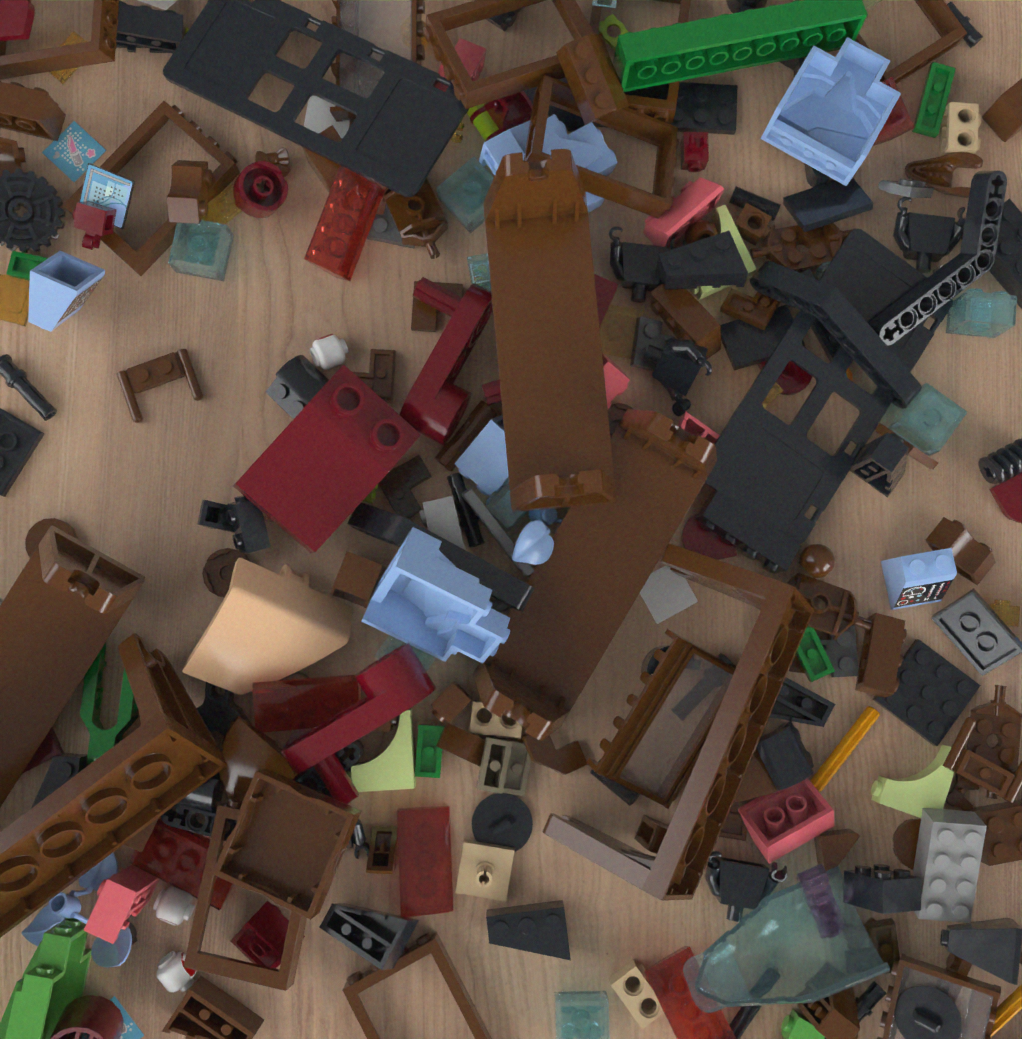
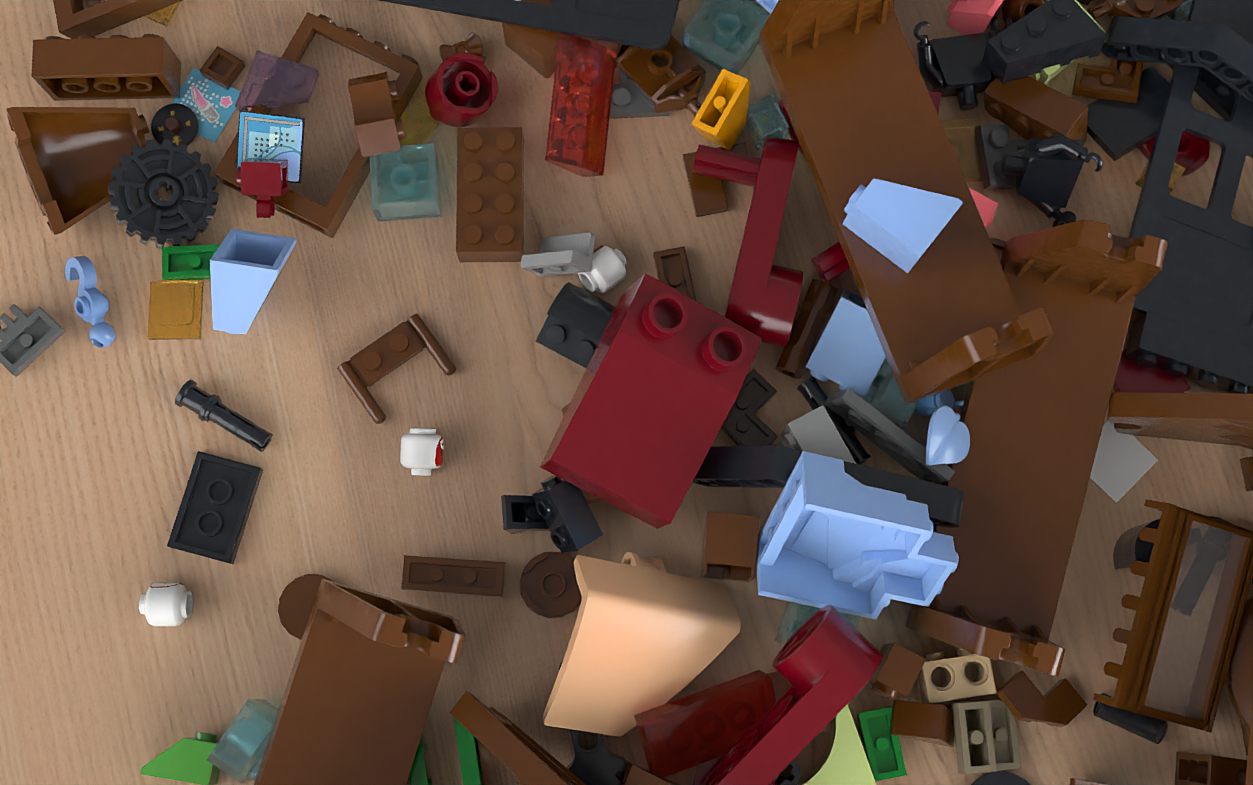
camera: 15 degrees left, 5 degrees down
(48, 161) = (174, 123): none -> piece
(94, 127) = (222, 68): none -> reddish brown tile
(124, 148) = (276, 82): none -> clear purple wing
(157, 547) = (453, 576): none -> reddish brown plate
(159, 450) = (422, 451): none -> white head
(261, 274) = (490, 194): none -> reddish brown brick
(300, 333) = (561, 255): none -> light grey panel
(450, 255) = (724, 110): none -> light orange slope
(538, 374) = (898, 219): none -> light blue slope

